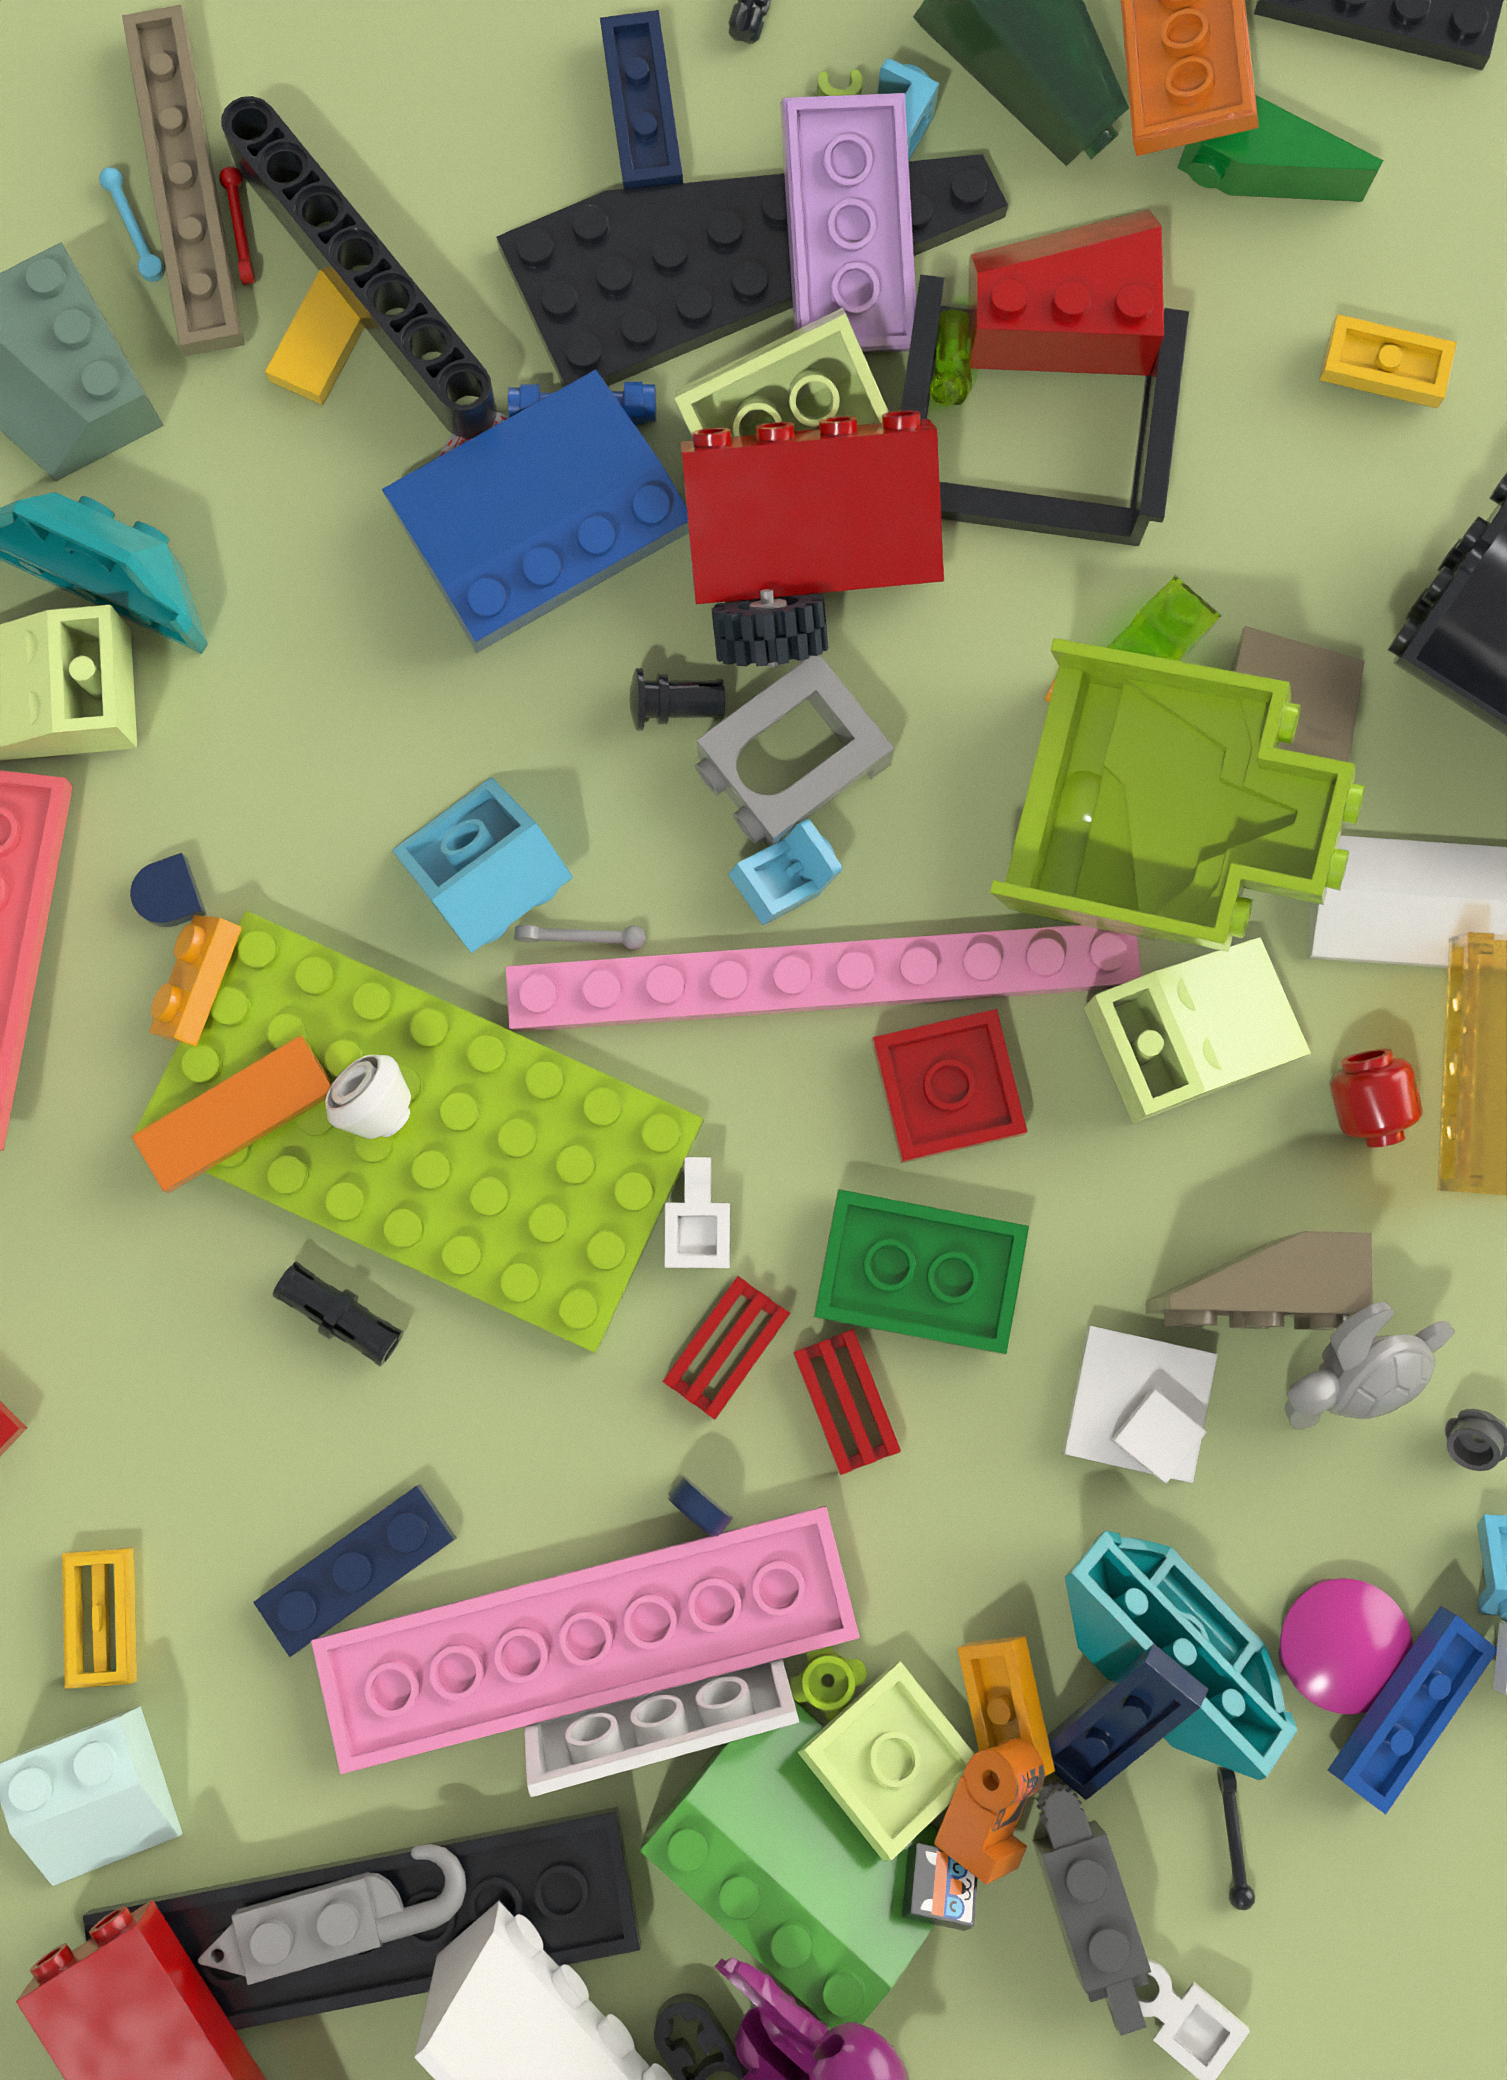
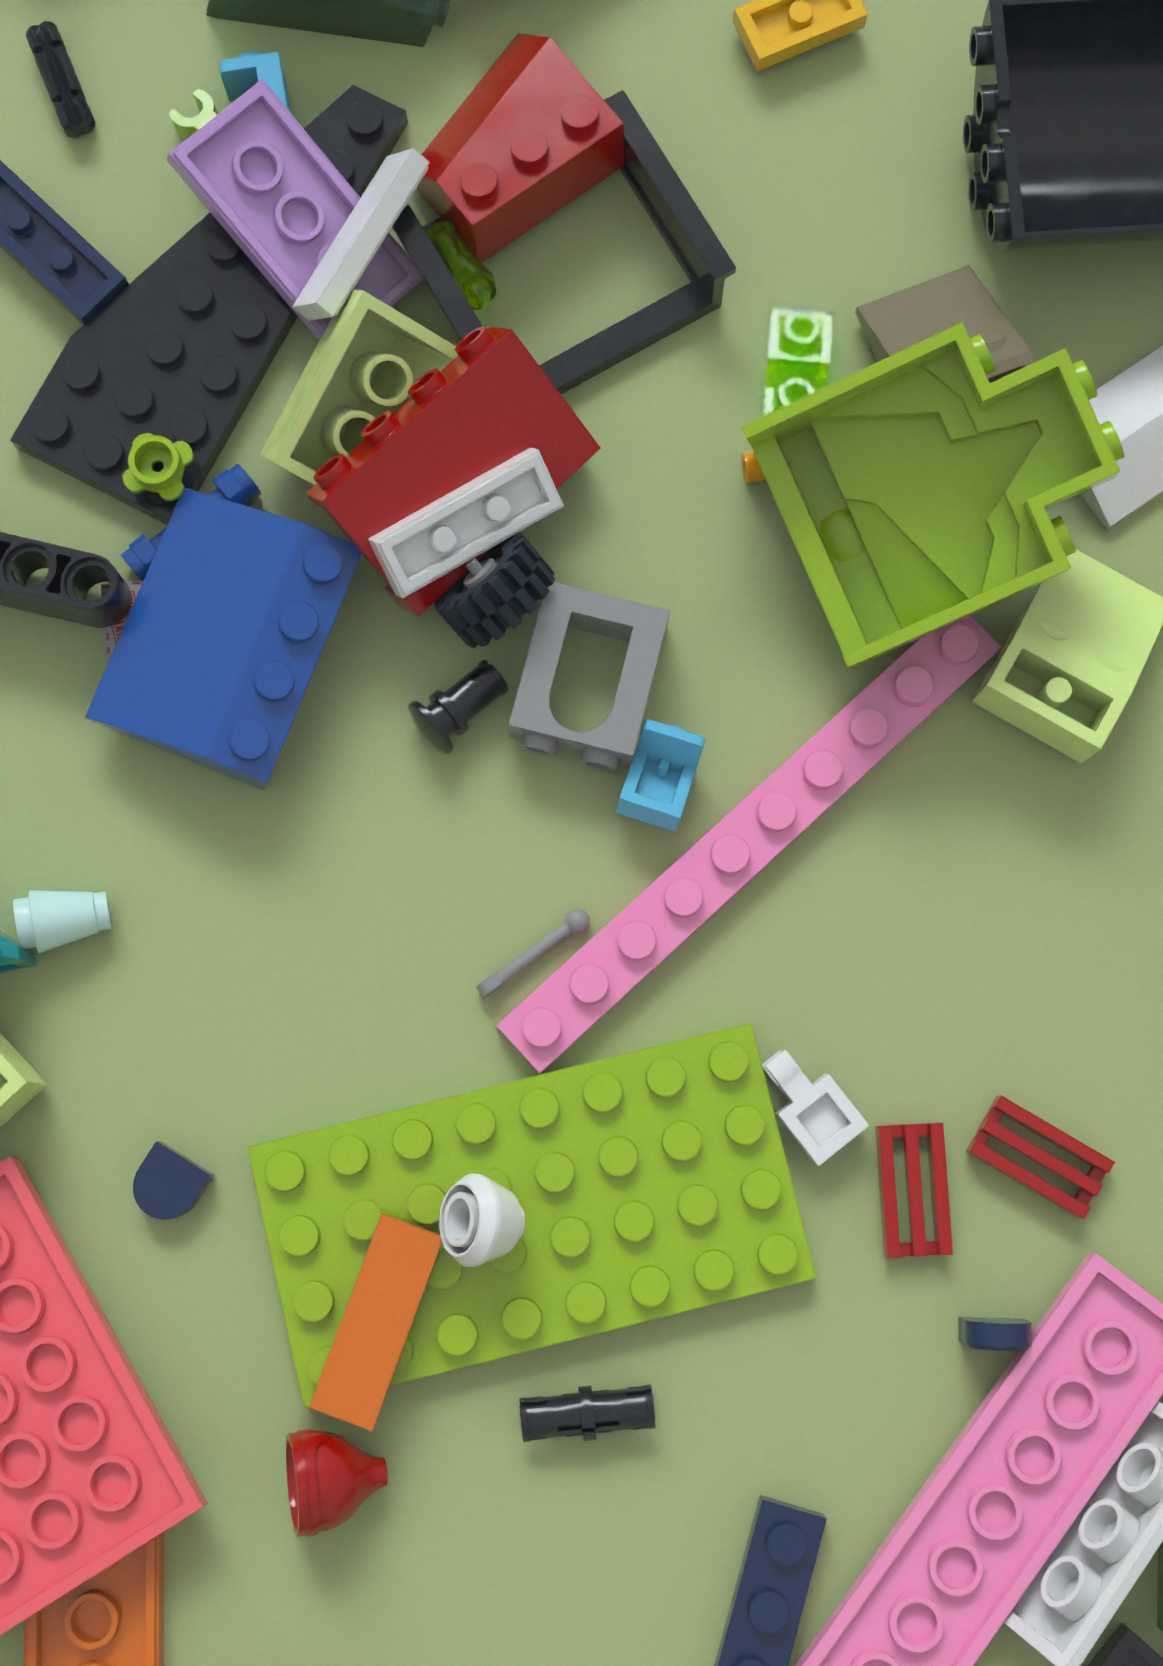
camera: 40 degrees left, 0 degrees up
(105, 1205) = (328, 1479): none -> red helmet
(187, 998) = (252, 1237): light orange plate -> none
(243, 628) = (59, 917): none -> light aqua cone
(483, 864) = (411, 957): medium azure slope -> none
(588, 321) = (147, 451): none -> lime plate
(787, 557) = (466, 522): none -> white tile
(886, 273) = (361, 235): none -> white tile
(921, 1271) = (1017, 1009): green plate -> none
(949, 1086) = (921, 845): red plate -> none

